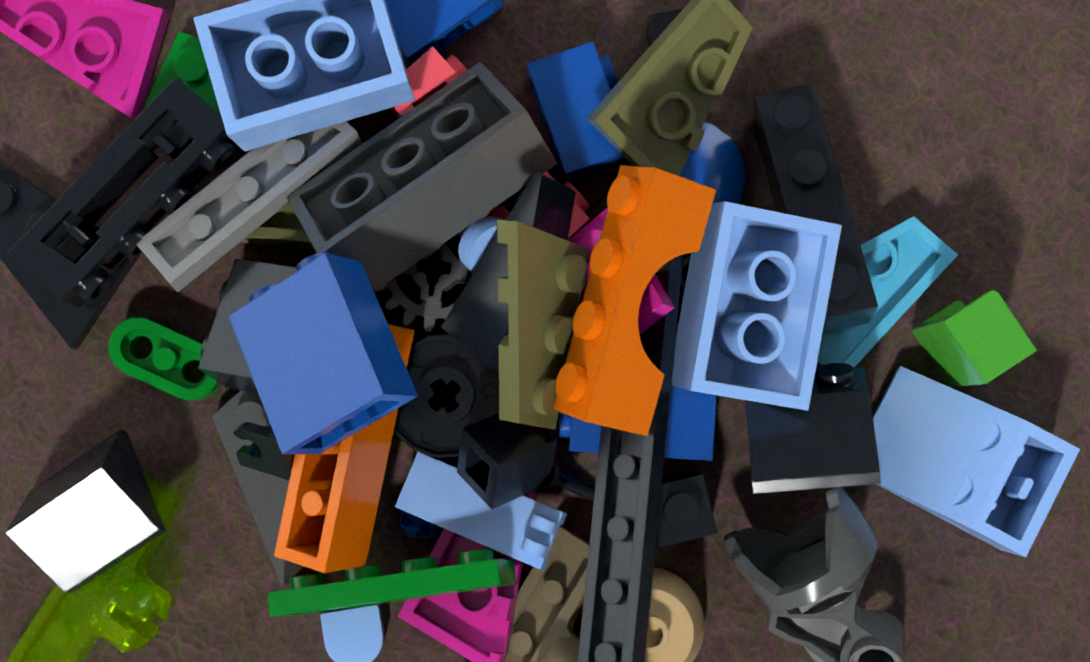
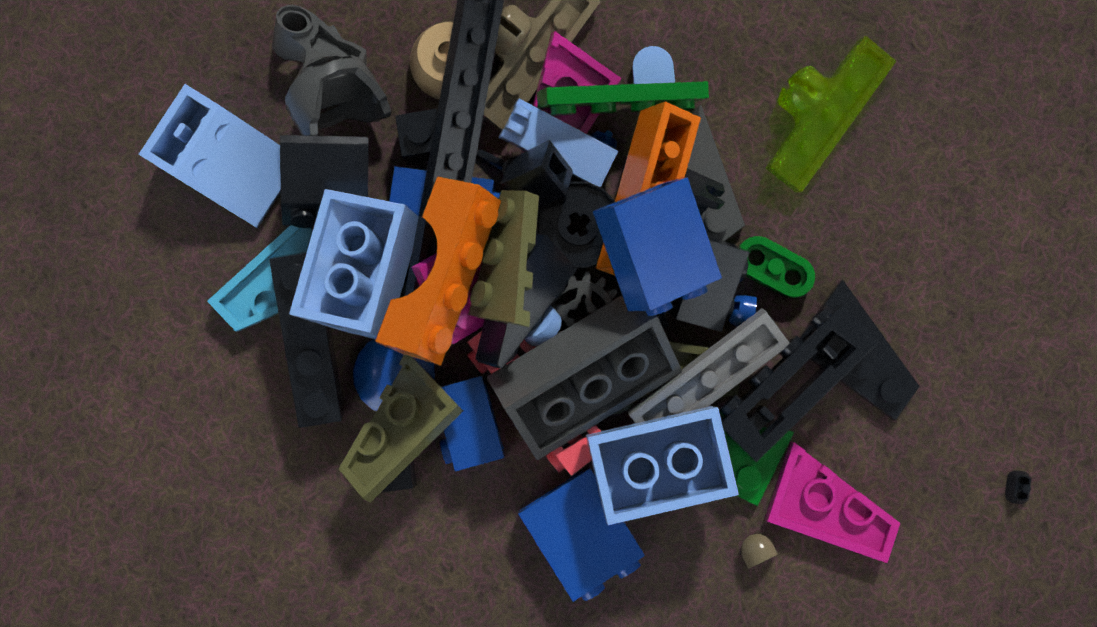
camera: 175 degrees left, 0 degrees up
(88, 515) = (832, 161): slope -> none
(202, 294) = (743, 309): none -> blue hinge
(974, 340) = (203, 235): bright green panel -> none

